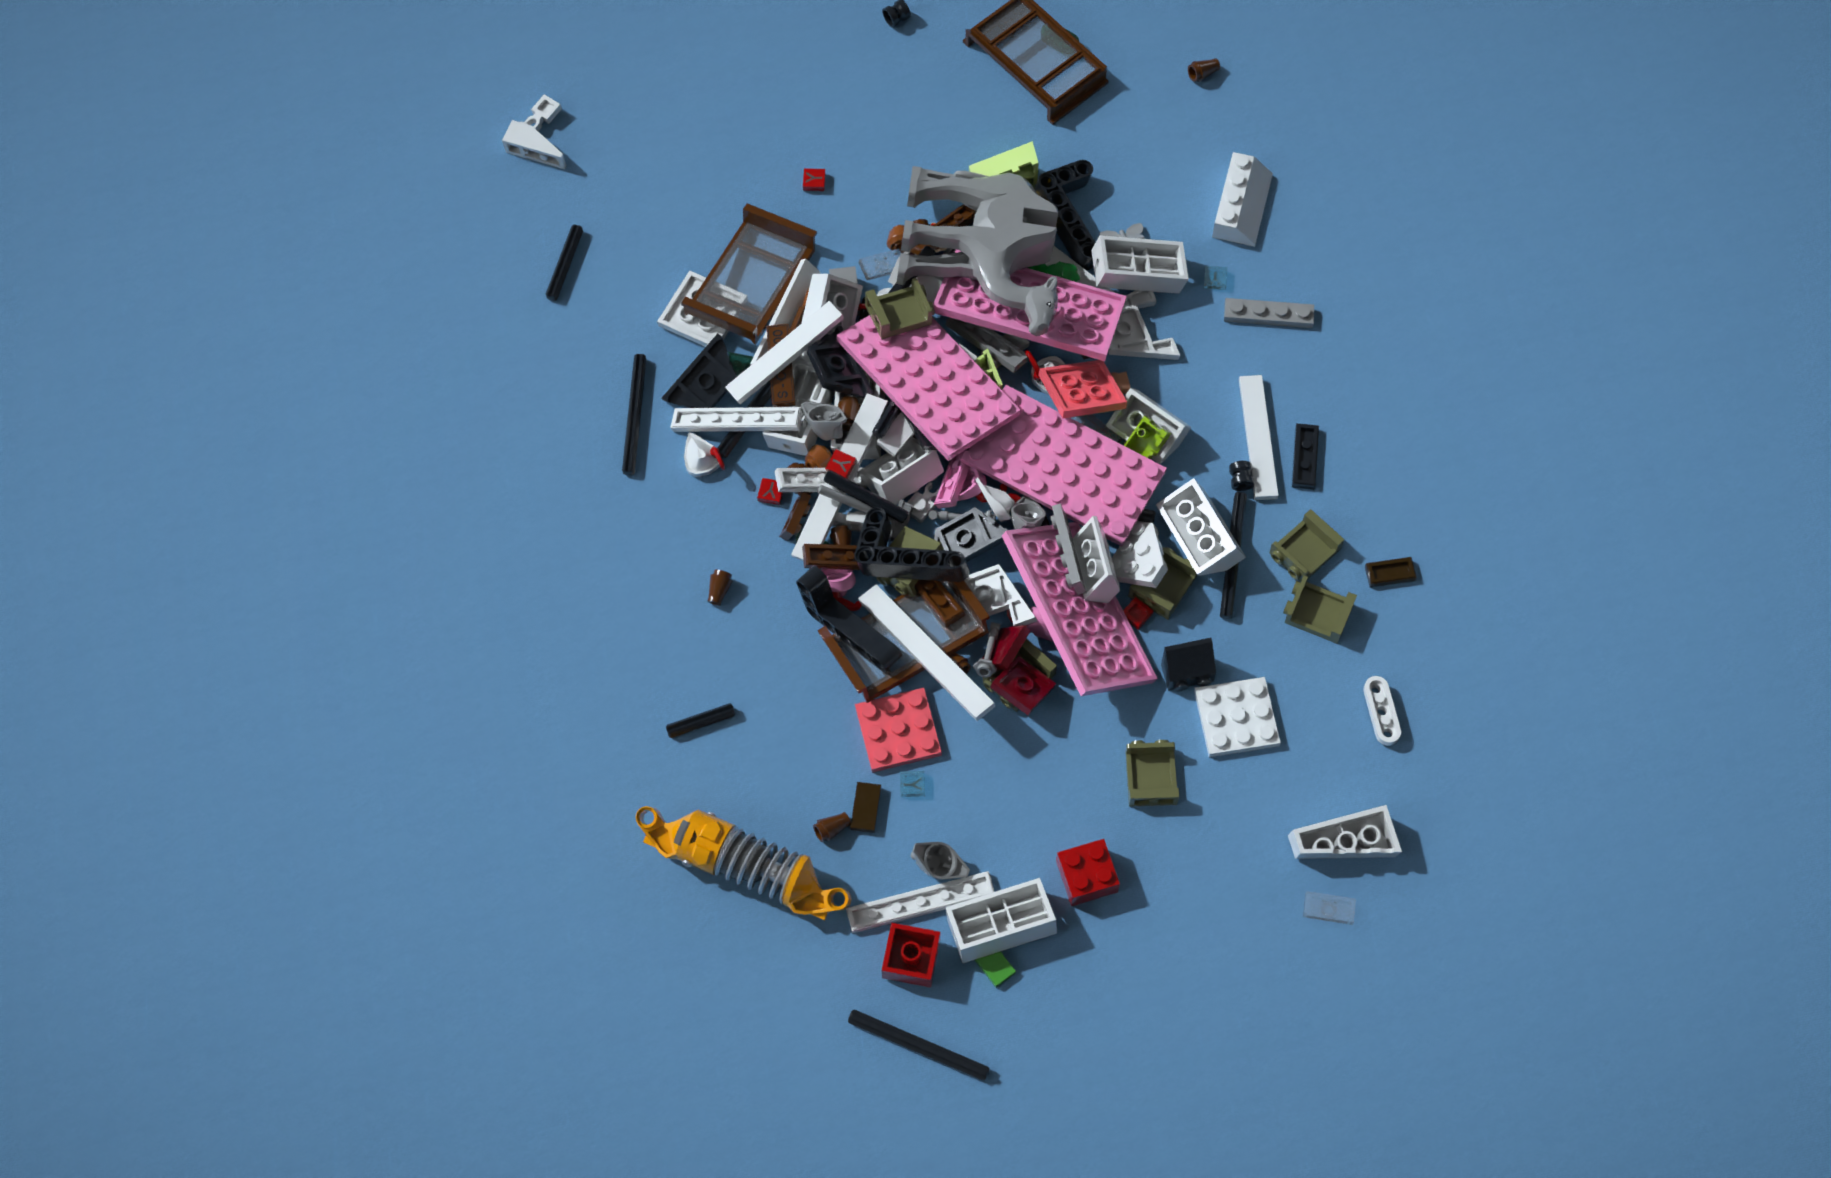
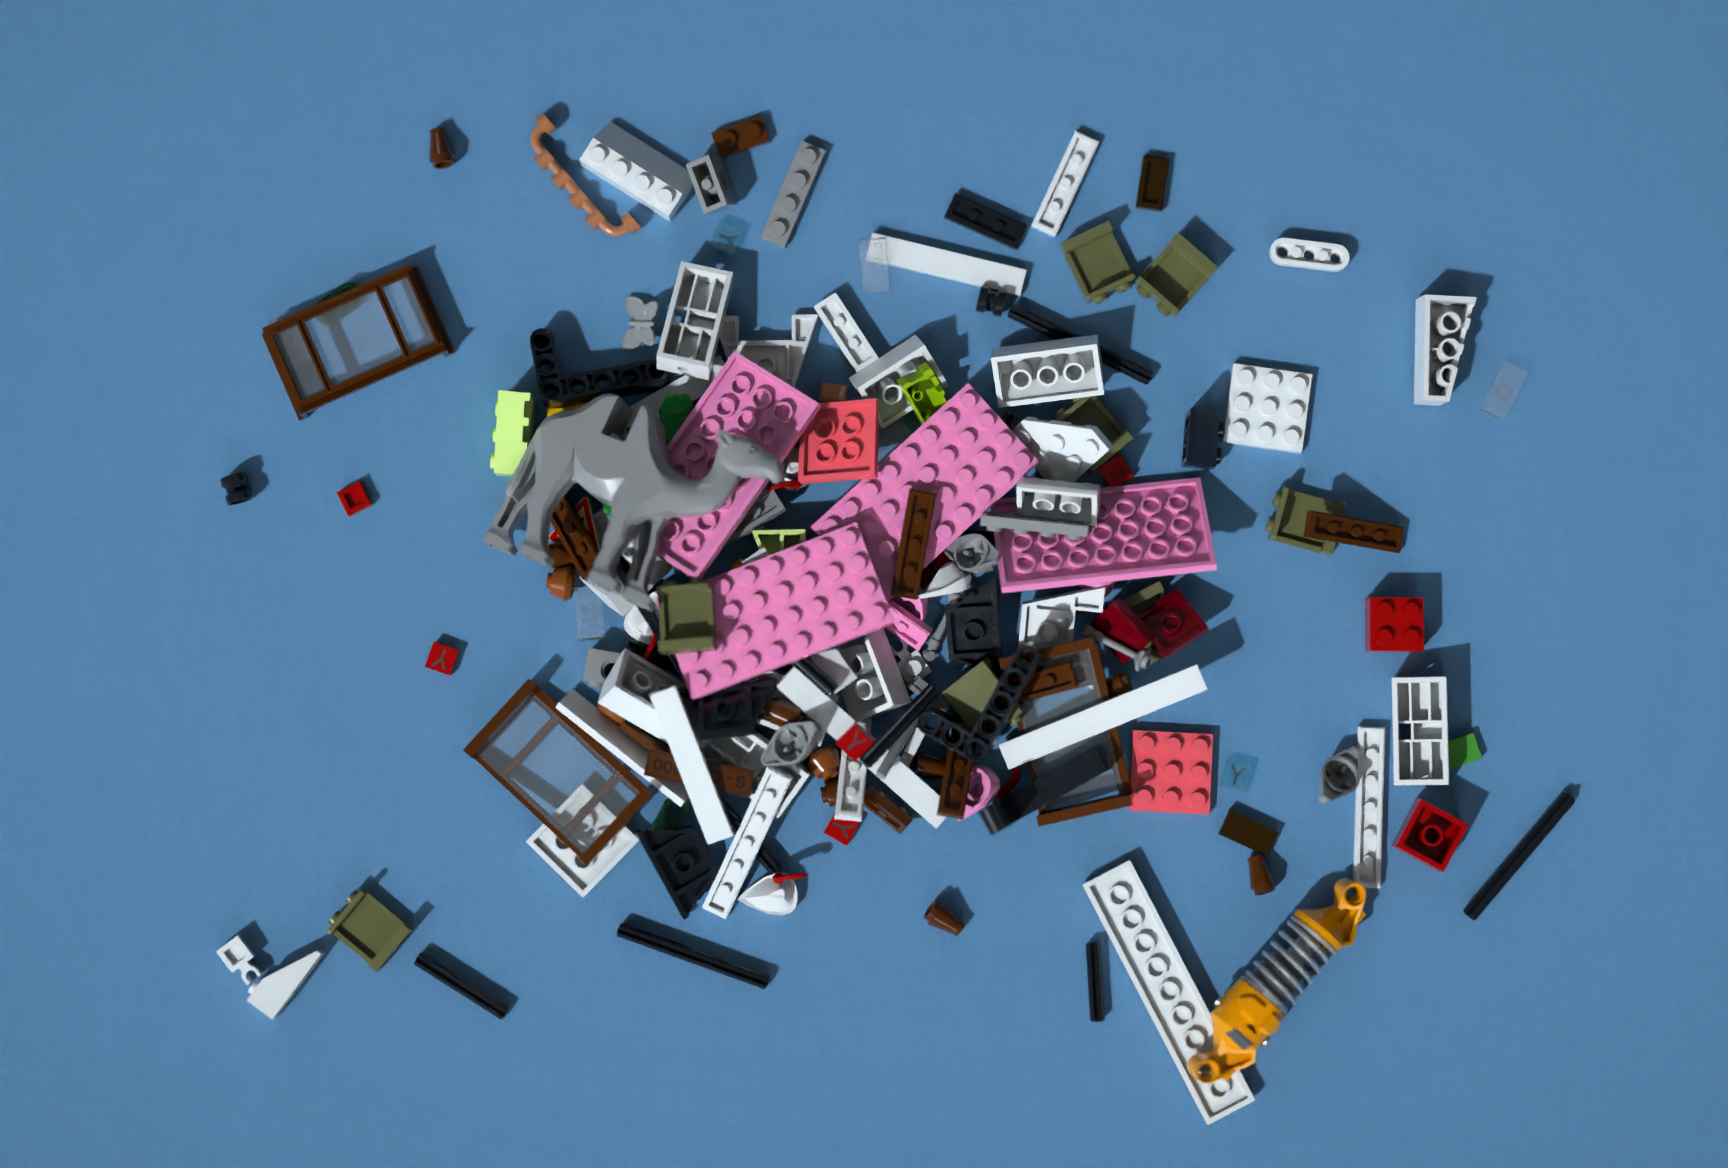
camera: 75 degrees left, 20 degrees up
(590, 189) = (369, 928): none -> olive panel
(713, 774) = (1163, 984): none -> white plate
(916, 91) = (355, 498): none -> red tile
(1018, 461) = (913, 544): none -> reddish brown tile
(1156, 810) = (1353, 531): none -> reddish brown tile
(1174, 378) = (845, 332): none -> white plate
(1214, 155) = (563, 179): none -> nougat bar
(1236, 382) = (874, 264): none -> clear plate
(1252, 248) = (711, 184): none -> light grey brick
(1298, 264) = (740, 137): none -> reddish brown plate
(1361, 506) = (1065, 184): none -> white tile

